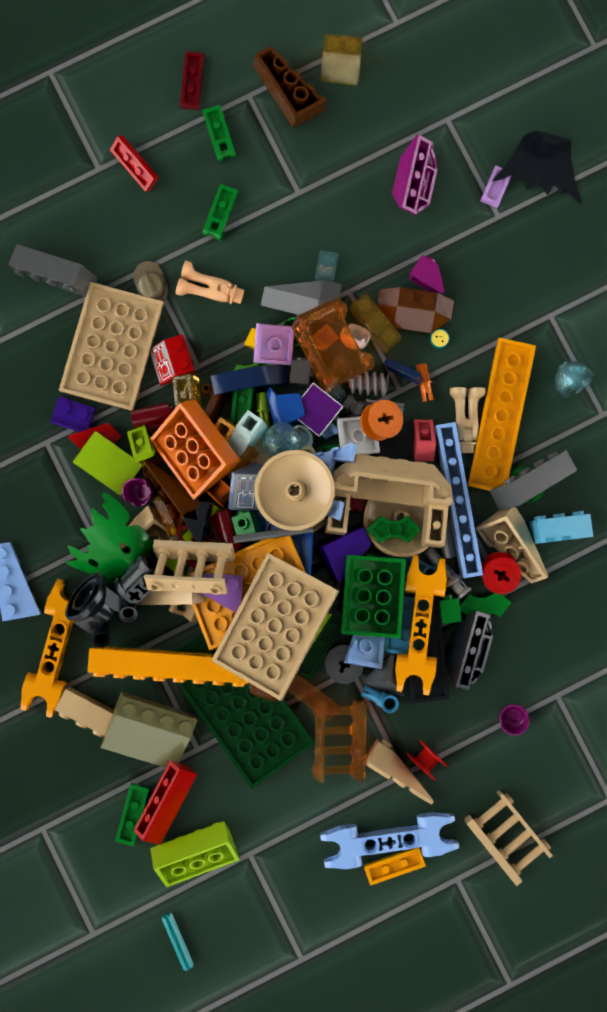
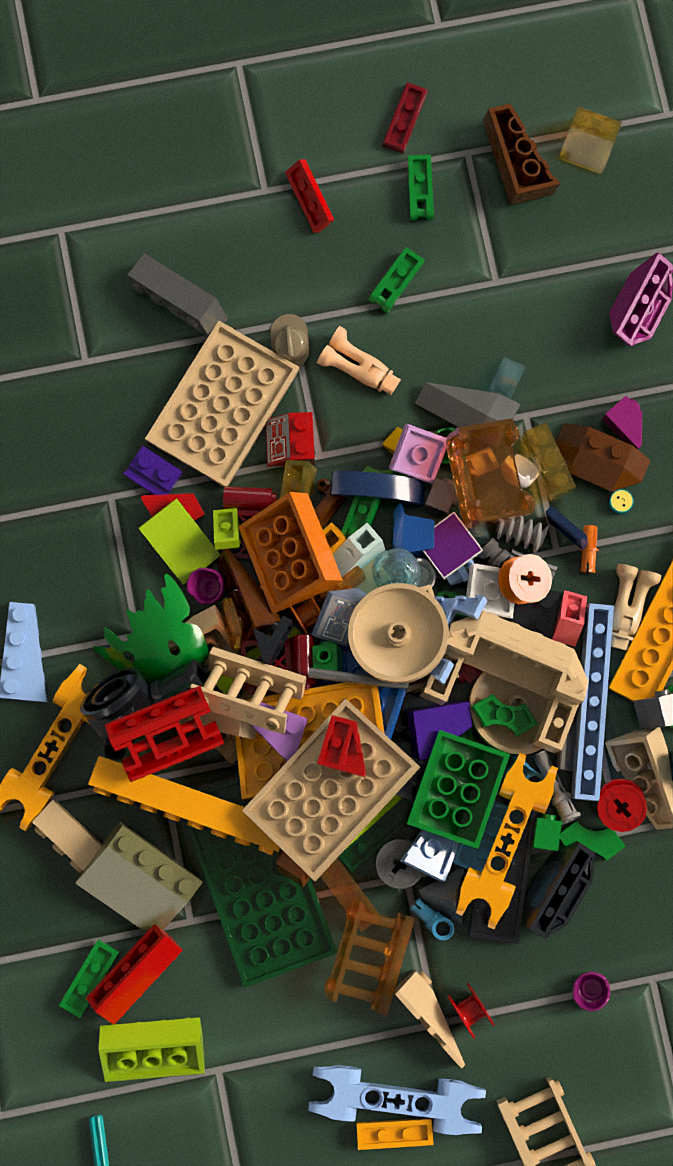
camera: 15 degrees right, 5 degrees down
(126, 609) = (158, 719): none -> red fence
(263, 407) = (384, 526): lime axle -> none
(275, 592) = (342, 747): none -> red wing

